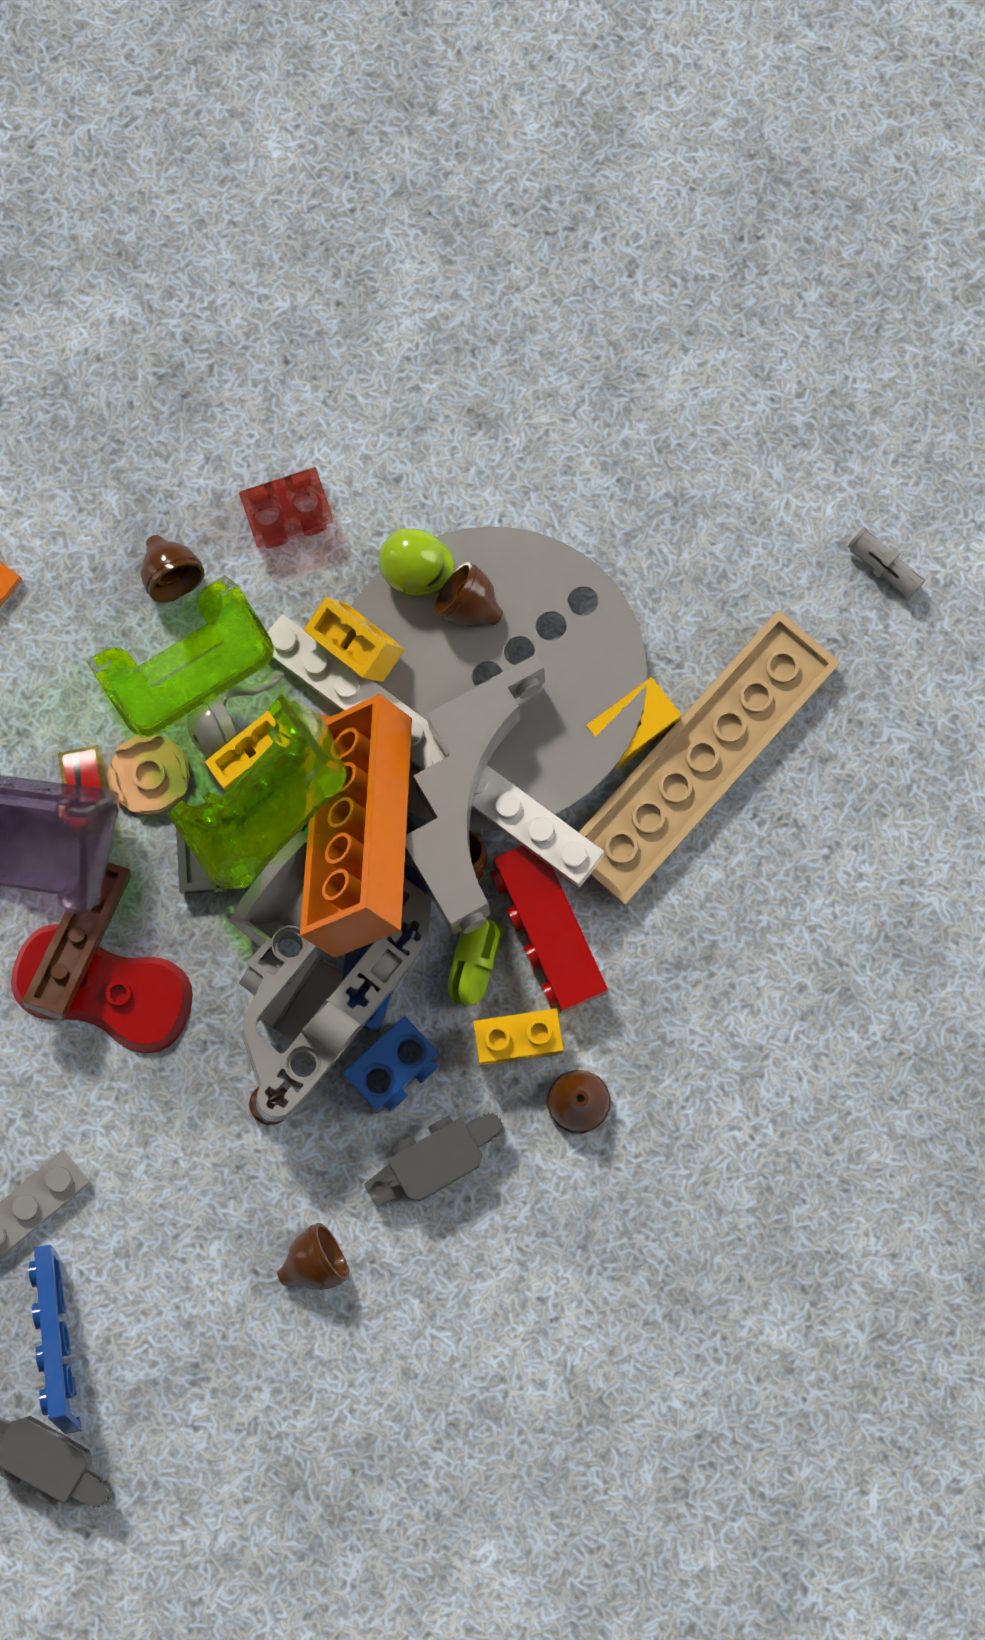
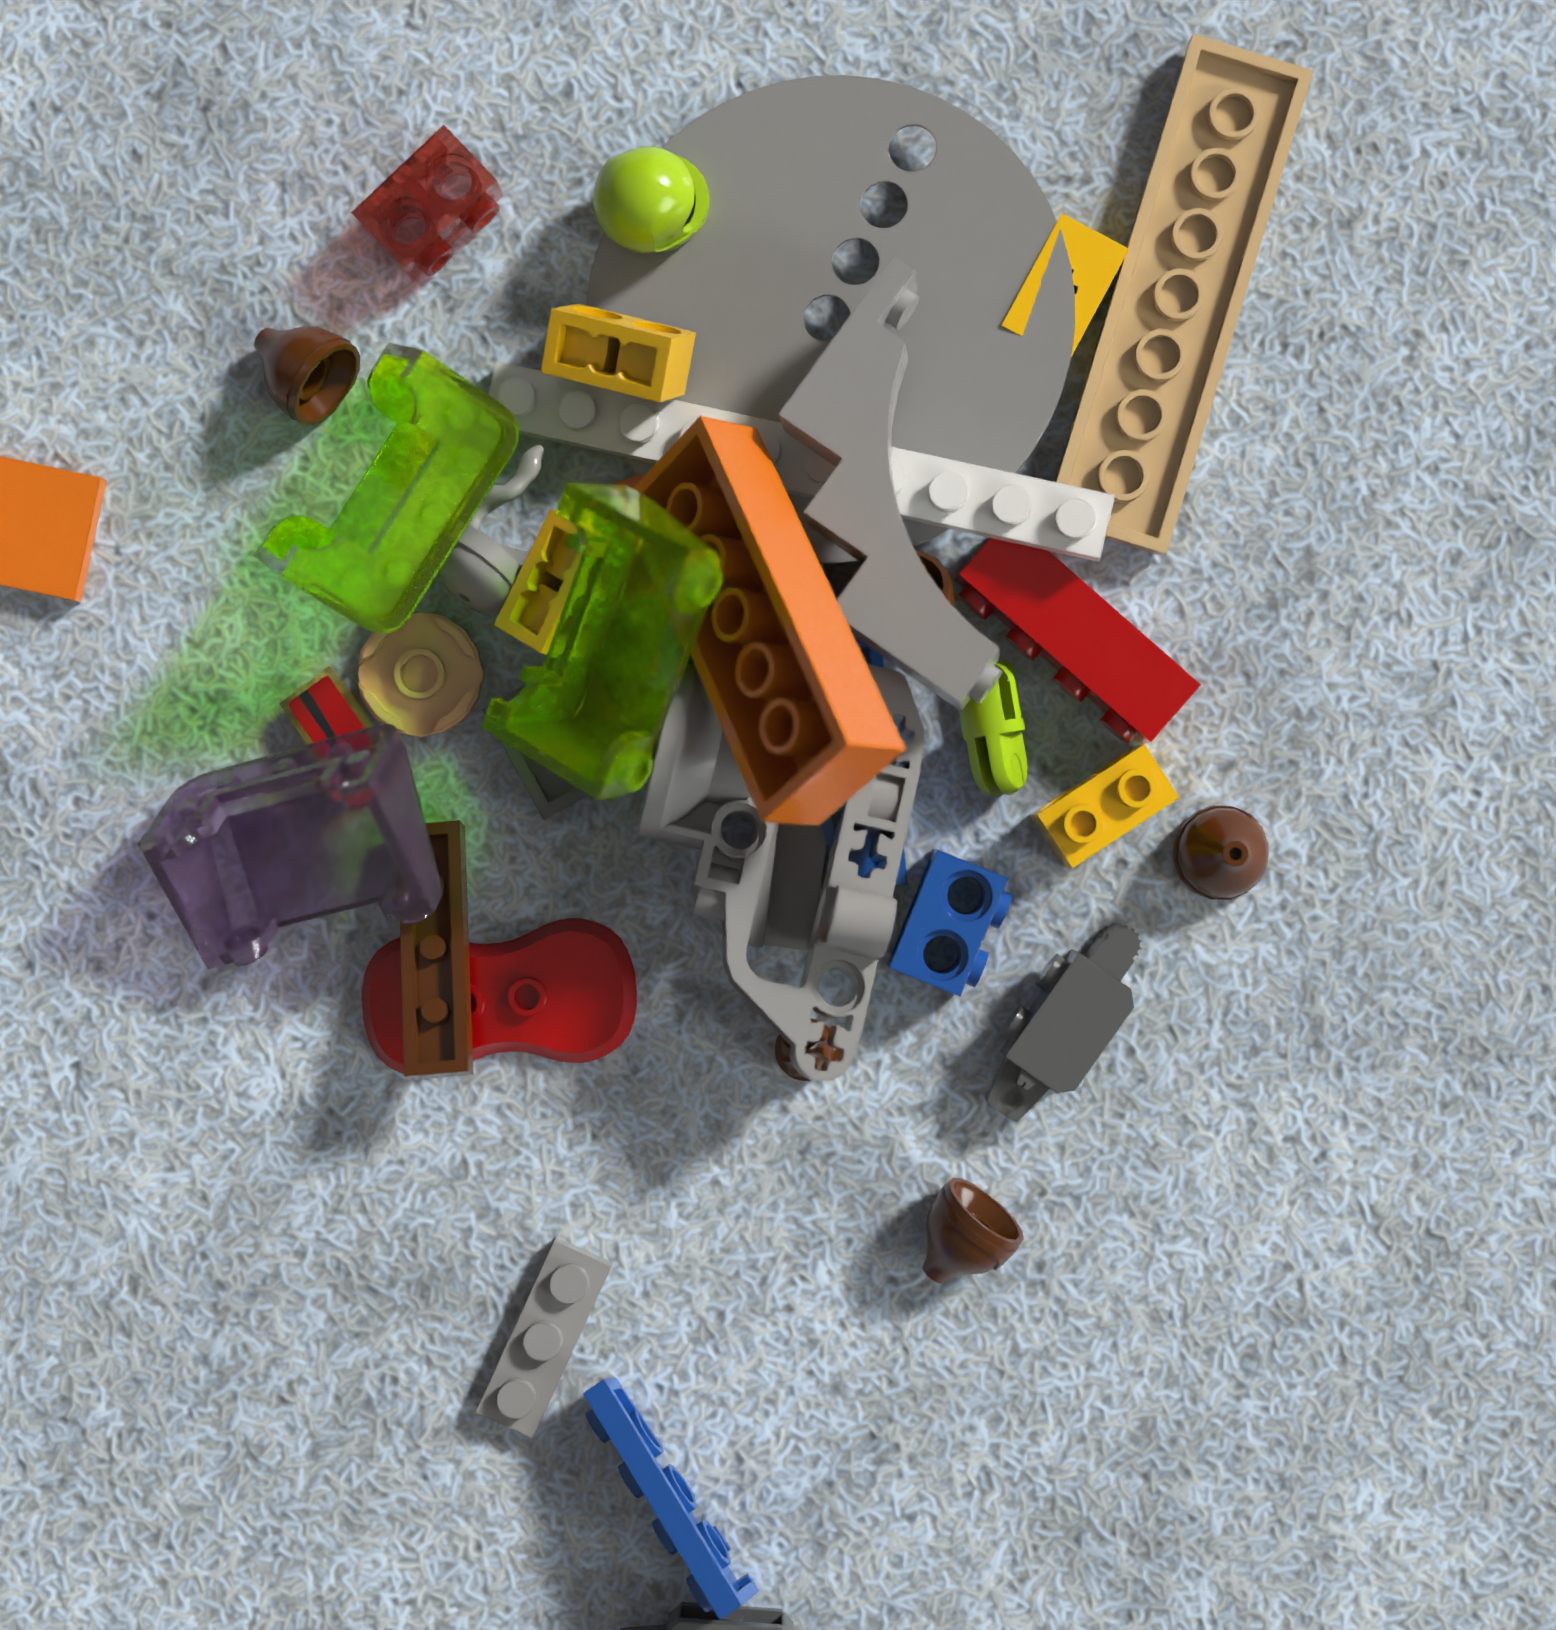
camera: 25 degrees left, 10 degrees up
(468, 598) = (750, 217): reddish brown helmet -> none

